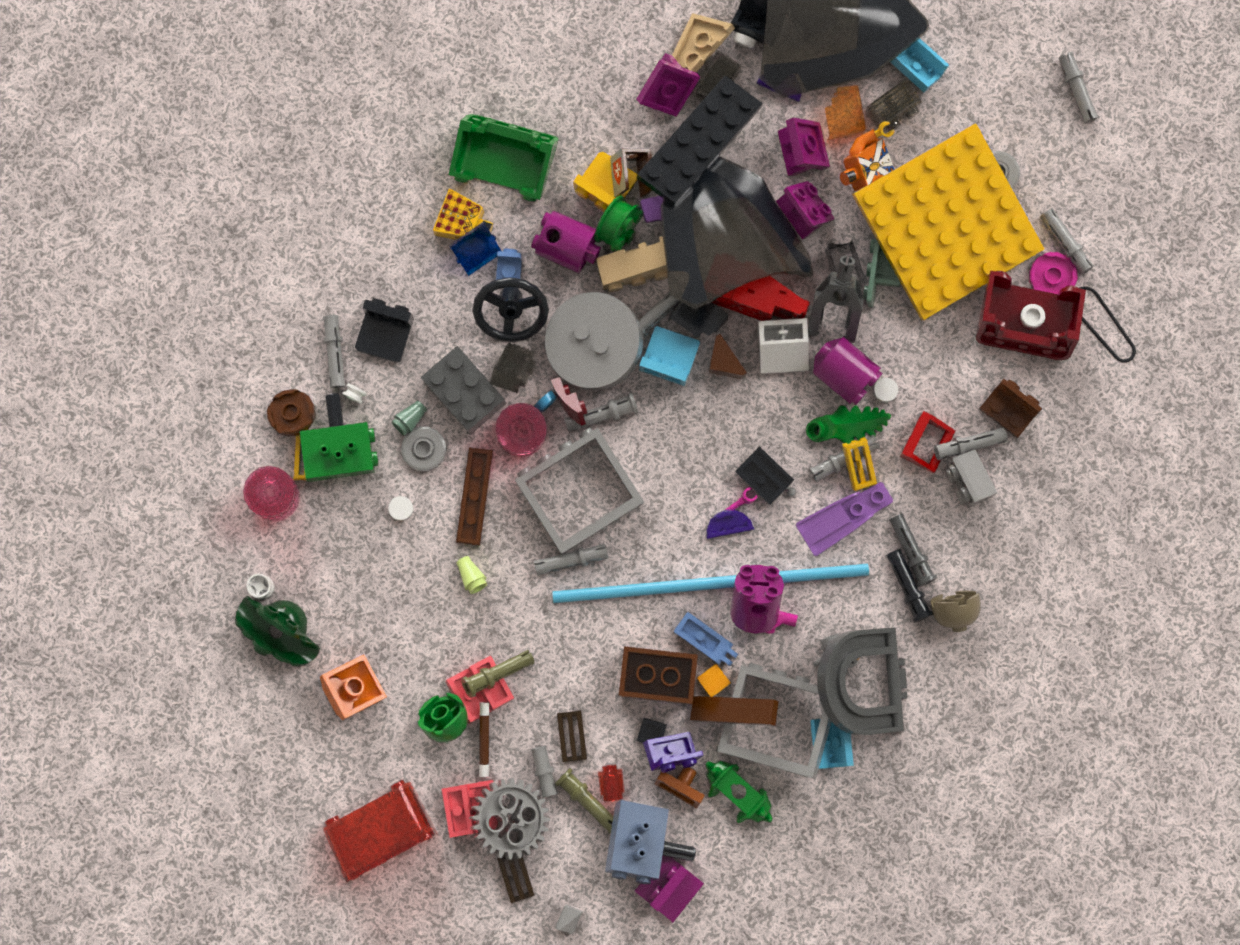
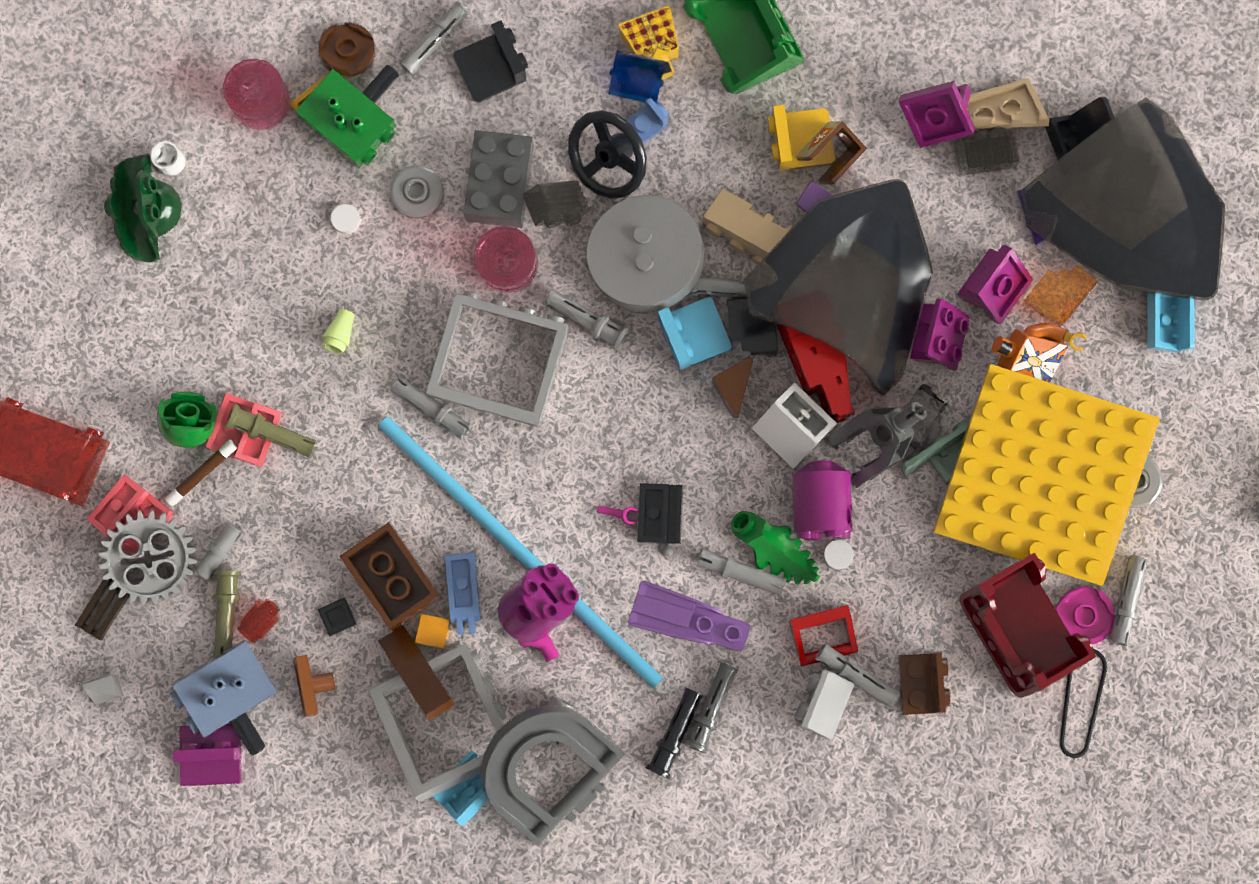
camera: 45 degrees right, 0 degrees up
(352, 687) = (147, 316): orange slope -> none
(354, 393) = (412, 88): white bush -> none
(409, 417) = (433, 154): sand green cone -> none
(474, 496) = (413, 273): reddish brown tile -> none
(546, 401) = (553, 260): dark azure tile -> none
(569, 402) = (569, 287): slope -> none
(574, 757) = (263, 540): dark brown tile -> none
(575, 242) = (716, 159): magenta cylinder -> none
(618, 223) = (771, 180): green wheel -> none
(671, 751) = (333, 649): bracket -> none
(699, 141) = (912, 183): black plate -> none
(728, 523) = (588, 519): dark purple tile -> none
(743, 40) = (1045, 145): white tile -> none
(754, 804) = (349, 766): green piece -> none
(850, 466) = (759, 570): yellow tile -> none
(894, 106) = (1109, 333): clear smoke brick -> none
(956, 610) = (690, 797): dark tan cylinder -> none
(1032, 316) = (1028, 629): white tile -> none

